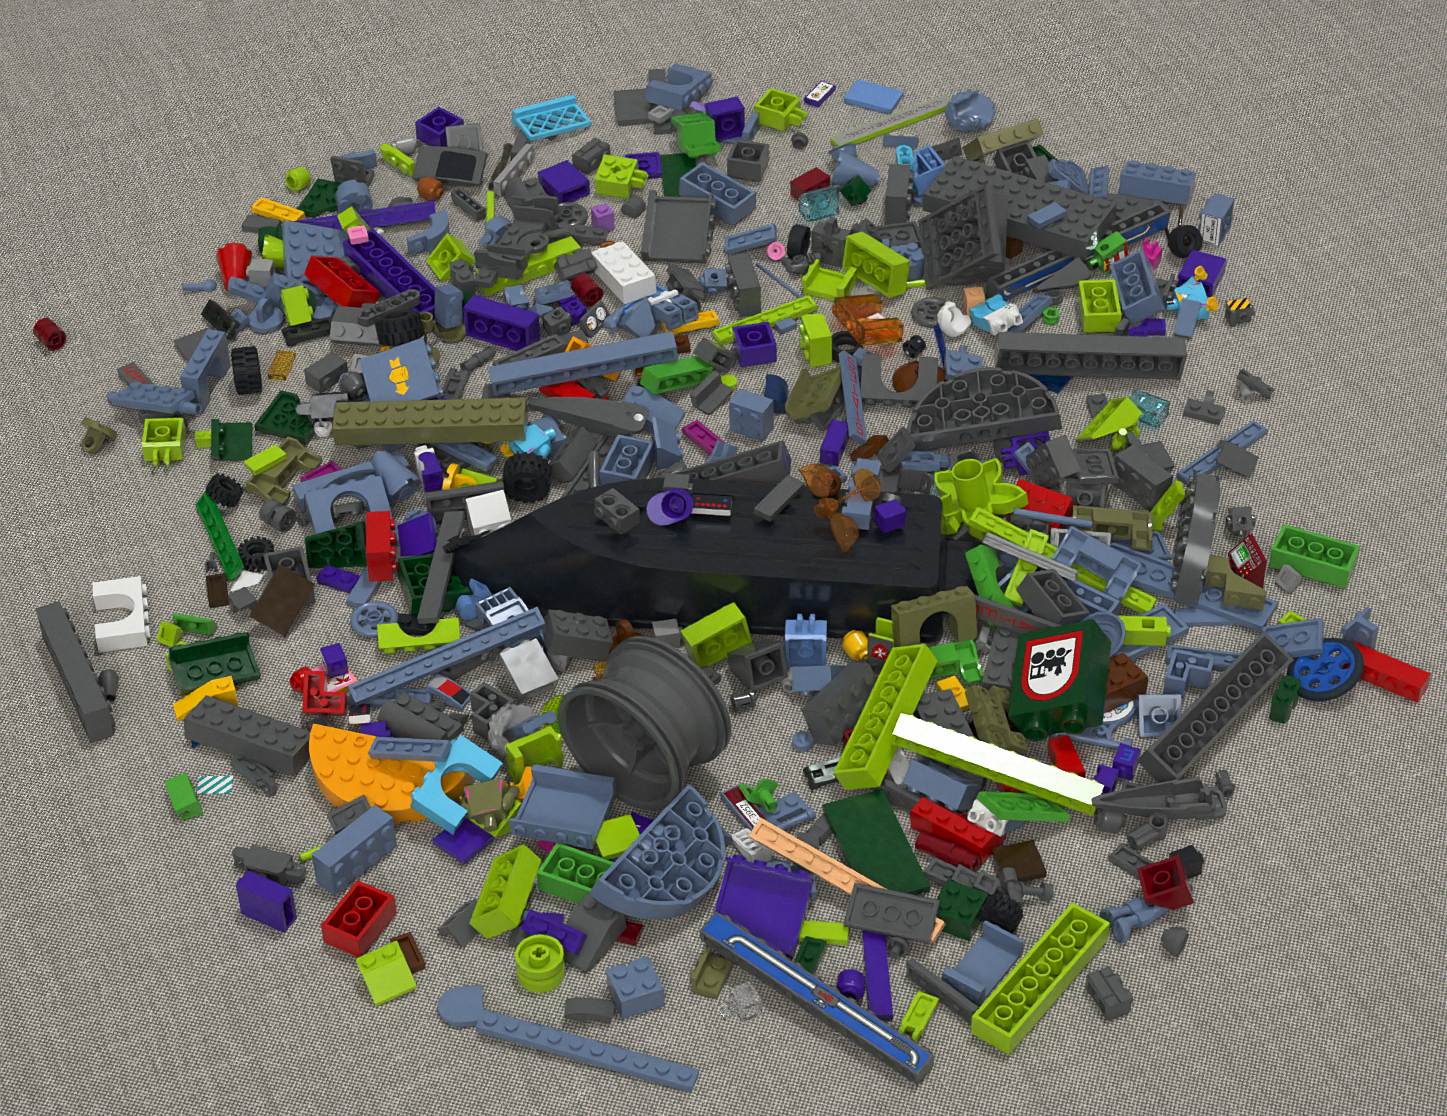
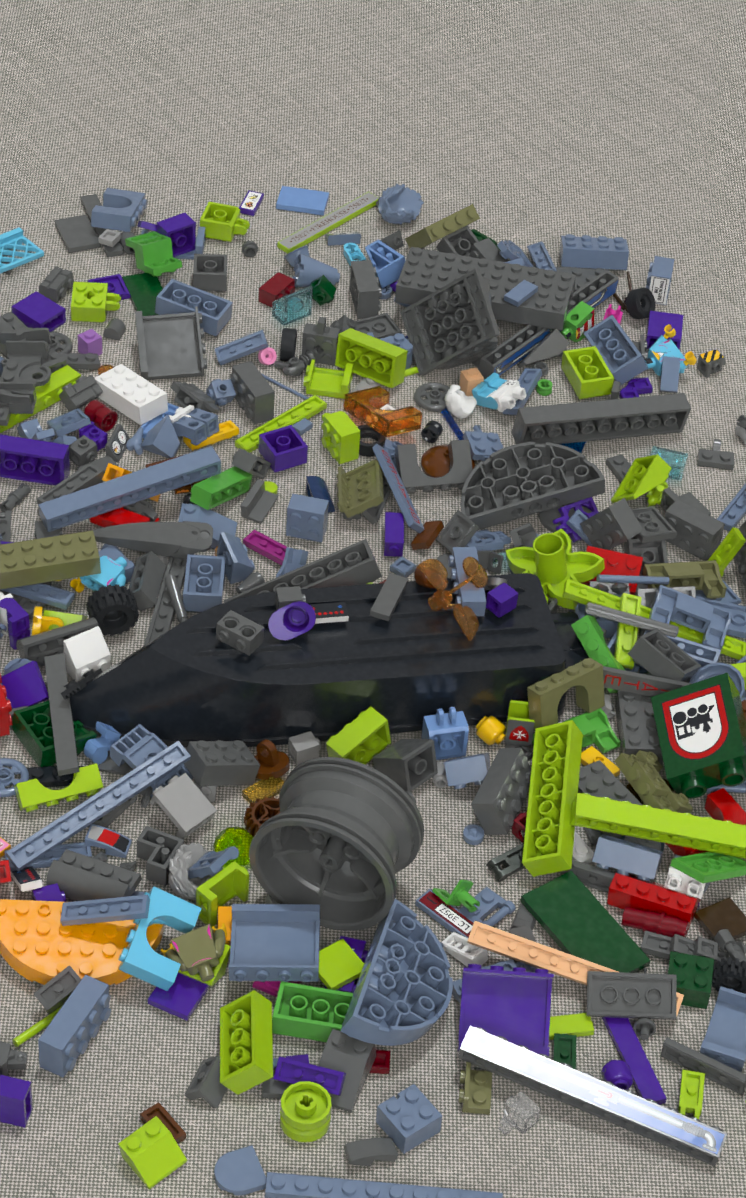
camera: 20 degrees left, 0 degrees up
(358, 919) = (103, 1099): red brick -> none

